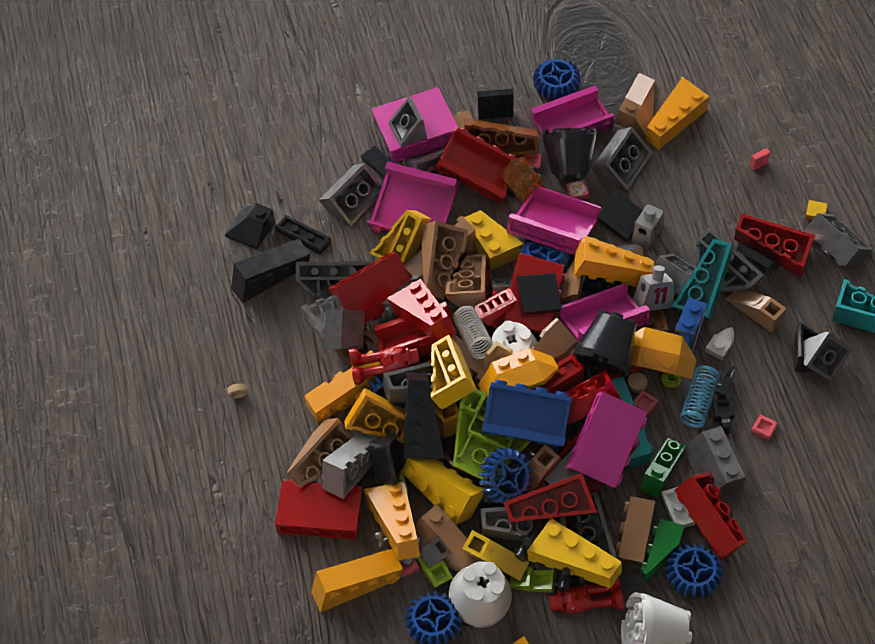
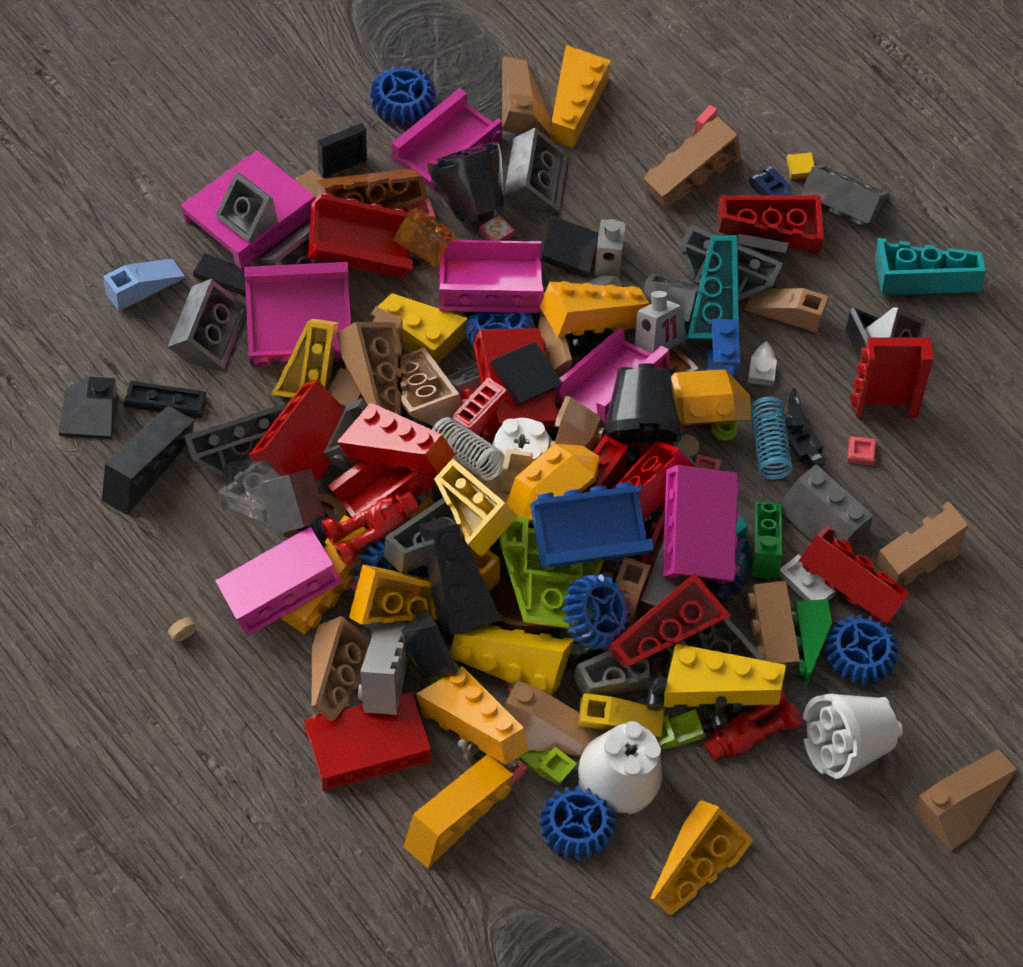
camera: 30 degrees left, 0 degrees up
(309, 380) = (278, 581): none -> panel
(322, 150) = (140, 280): none -> light blue slope
(434, 551) = (542, 739): dark grey plate -> none
(631, 480) = (744, 563): none -> dark blue piece
(736, 184) = (693, 162): none -> medium nougat wedge
(775, 513) = (925, 548): none -> medium nougat wedge
(790, 220) = (776, 186): none -> dark blue plate
(803, 378) = (892, 373): none -> red panel

